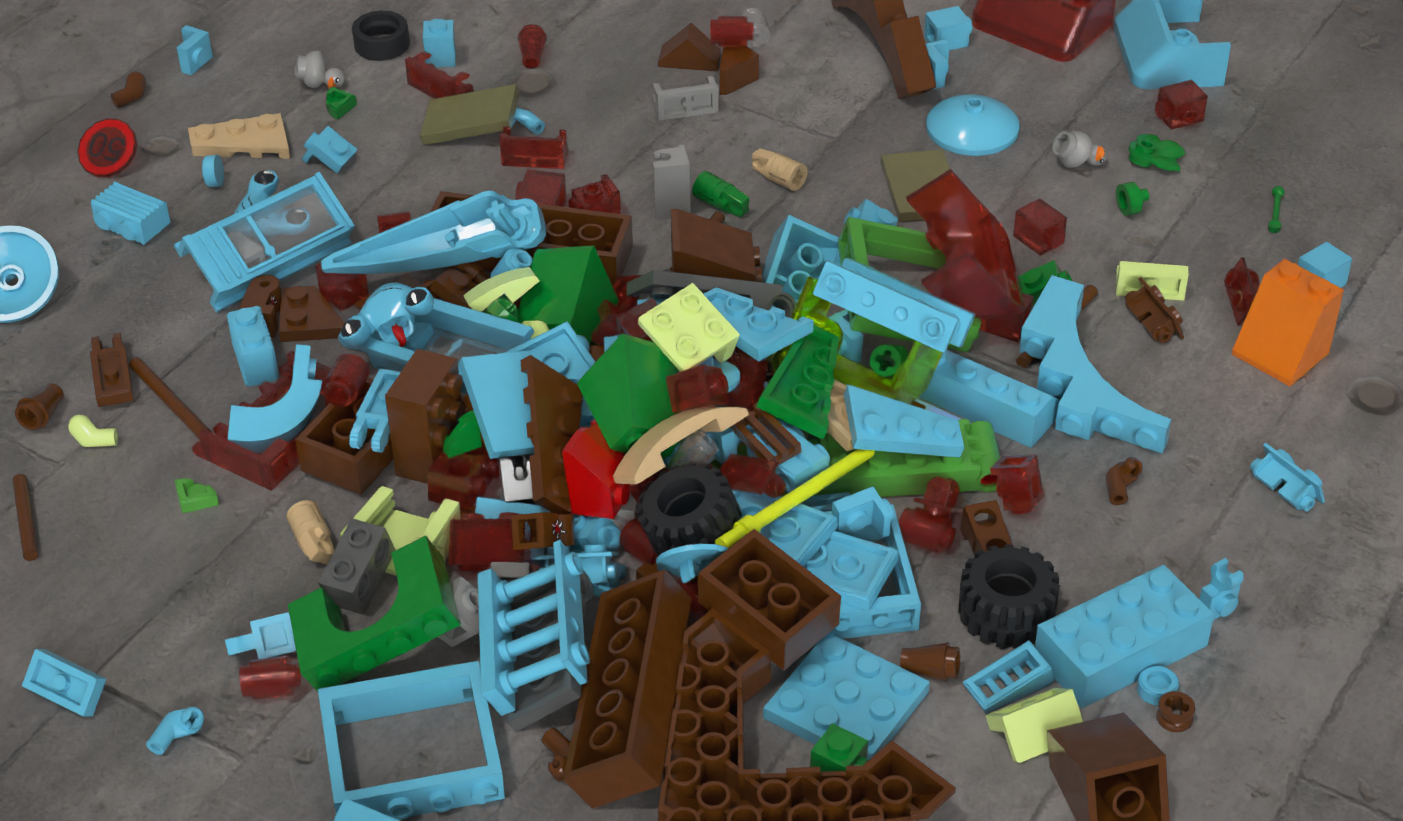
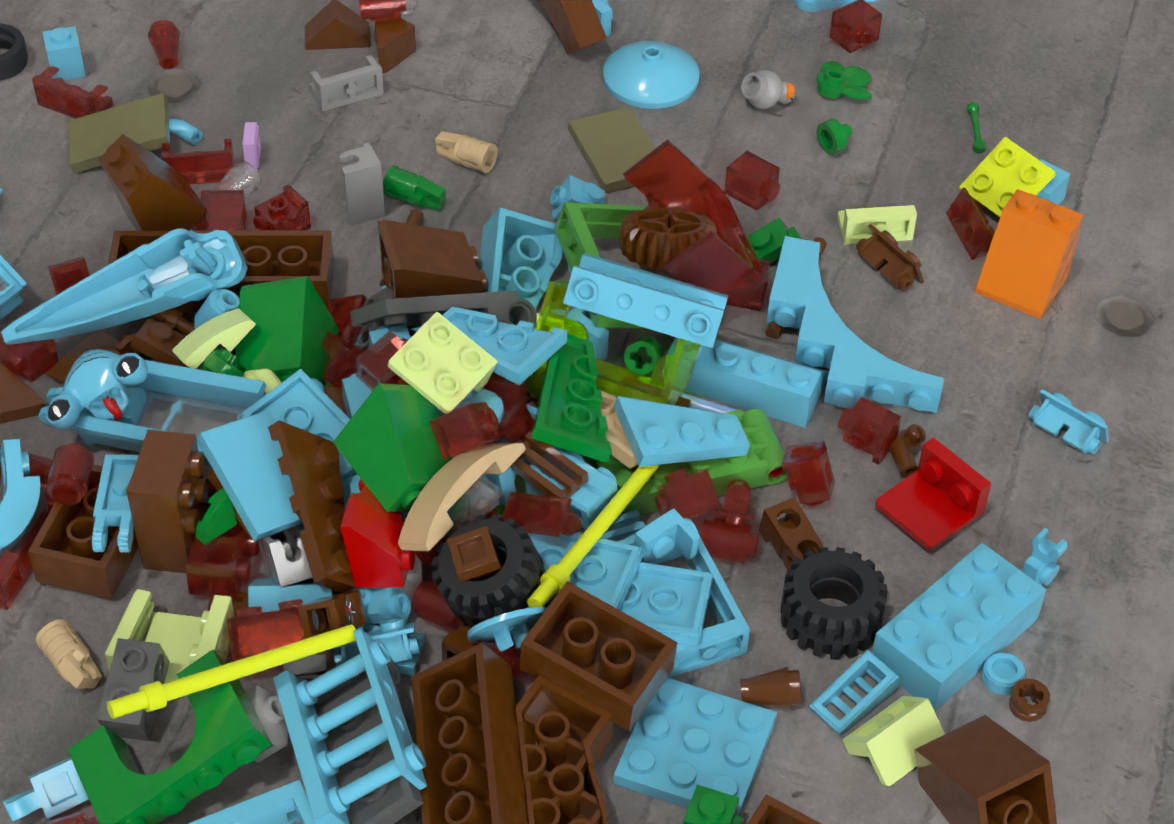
camera: 15 degrees left, 5 degrees up
(364, 560) = (155, 695): none -> neon yellow bar
(480, 157) = (150, 189): none -> reddish brown slope
(568, 164) = (241, 177): none -> clear cone
(584, 140) = (252, 144): none -> lavender tile
(675, 493) = (474, 554): none -> reddish brown tile
(895, 480) = (687, 493): none -> clear red brick
(921, 253) = (661, 234): none -> reddish brown gear
(1089, 454) = (870, 428): none -> clear red brick
(1138, 525) = (937, 497): none -> red bracket
(1290, 242) = (1004, 172): none -> neon yellow hinge

